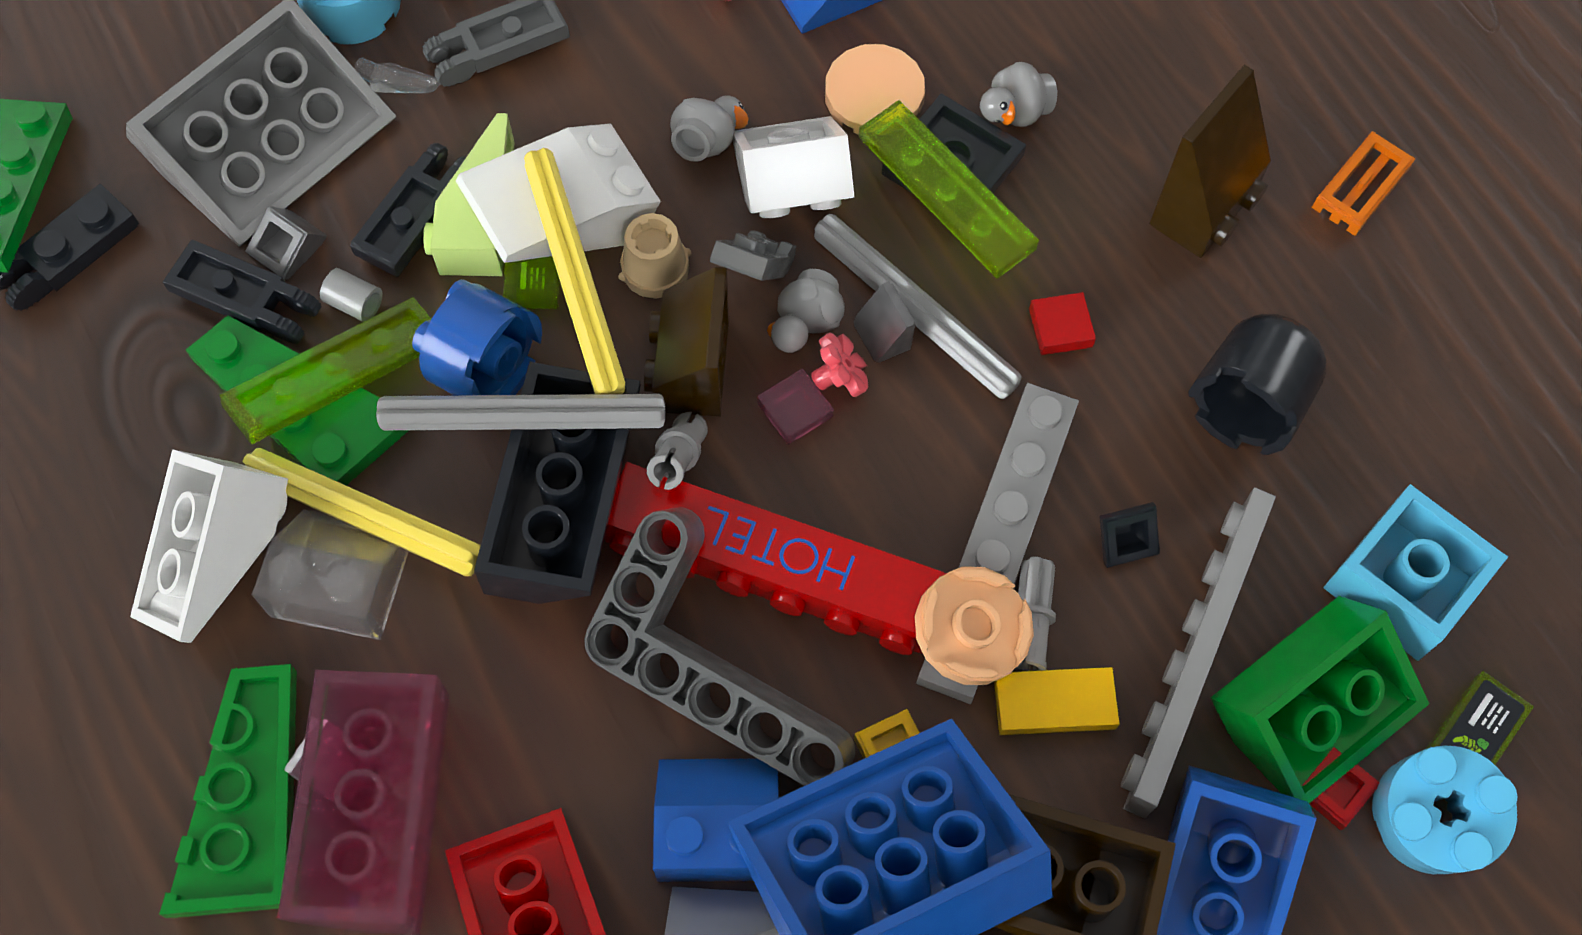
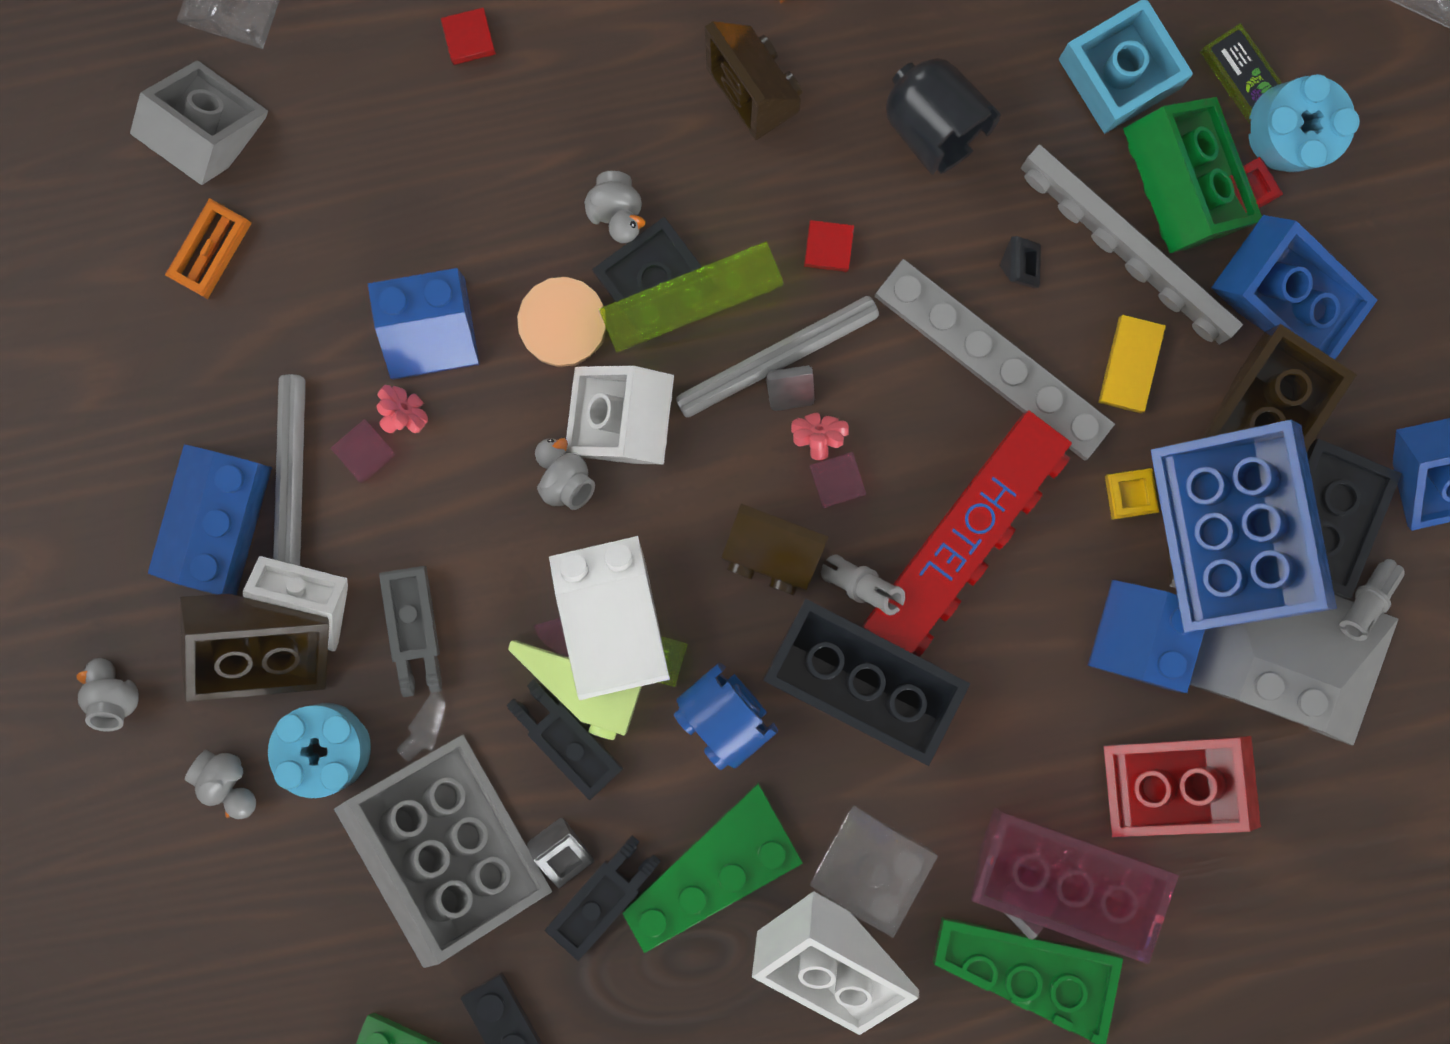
camera: 70 degrees left, 20 degrees up
(325, 372) = (703, 837): clear neon green tile -> none
(351, 294) = (632, 809): light grey hinge -> none
(370, 514) = (836, 840): light yellow axle -> none
(521, 412) = (812, 698): light grey axle -> none
(574, 273) = (702, 625): light yellow axle -> none
(653, 256) = (674, 554): tan piece -> none
(698, 666) = (1083, 588): dark grey beam -> none
(754, 255) = (720, 476): dark grey hinge -> none
(806, 307) = (757, 445): light grey animal -> none
(973, 626) = (1073, 407): light nougat tile -> none
(1037, 589) = (1064, 357): light grey axle -> none

